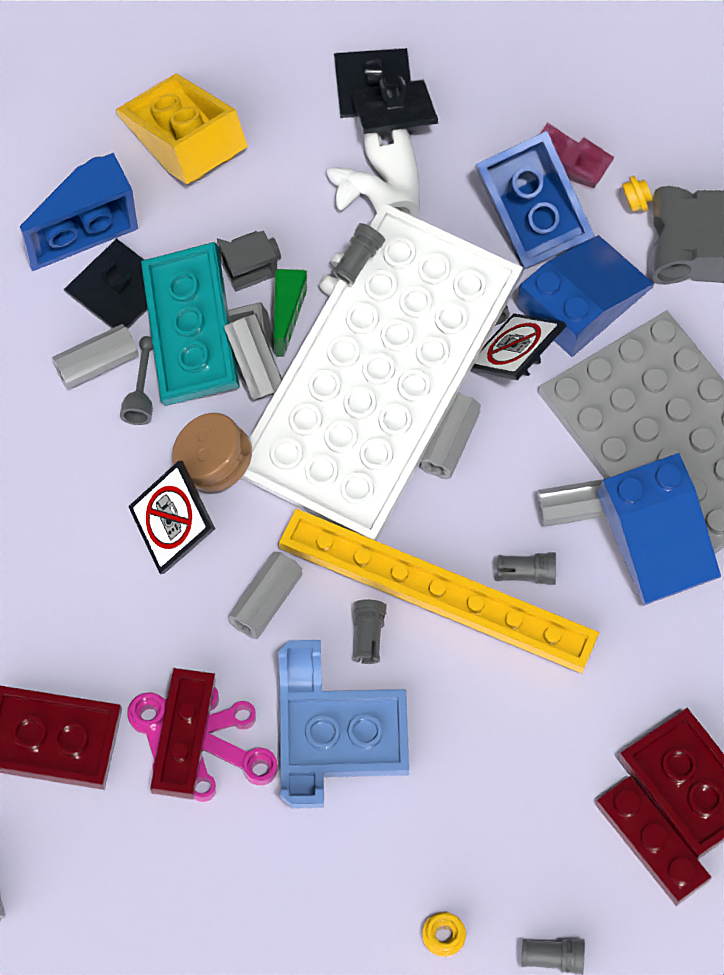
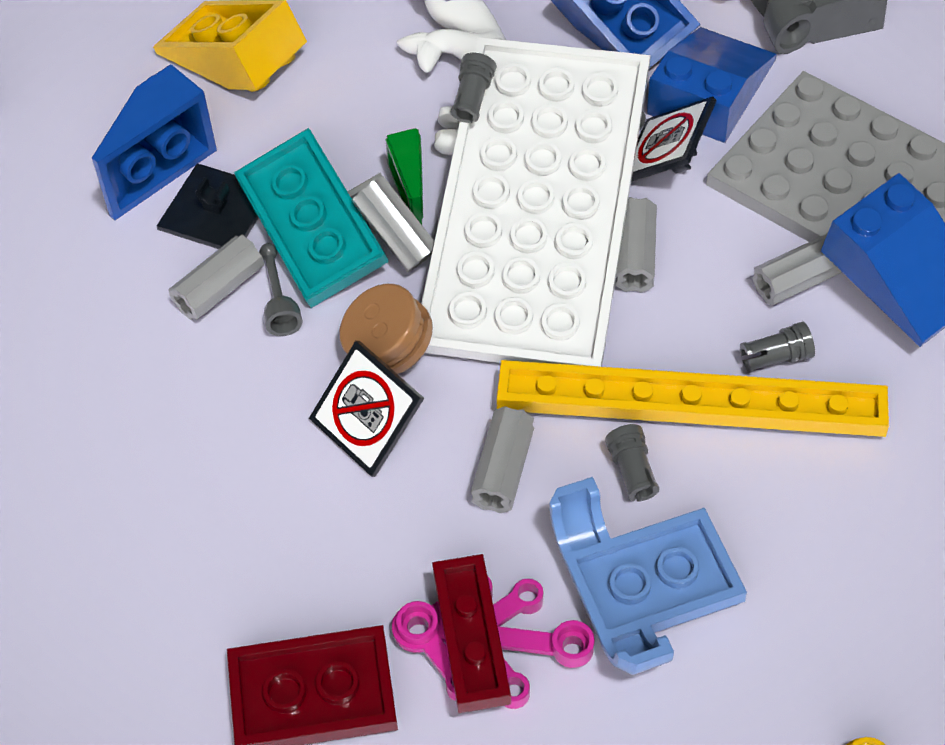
camera: 15 degrees left, 10 degrees down
(249, 259) = (350, 140): dark grey window -> none

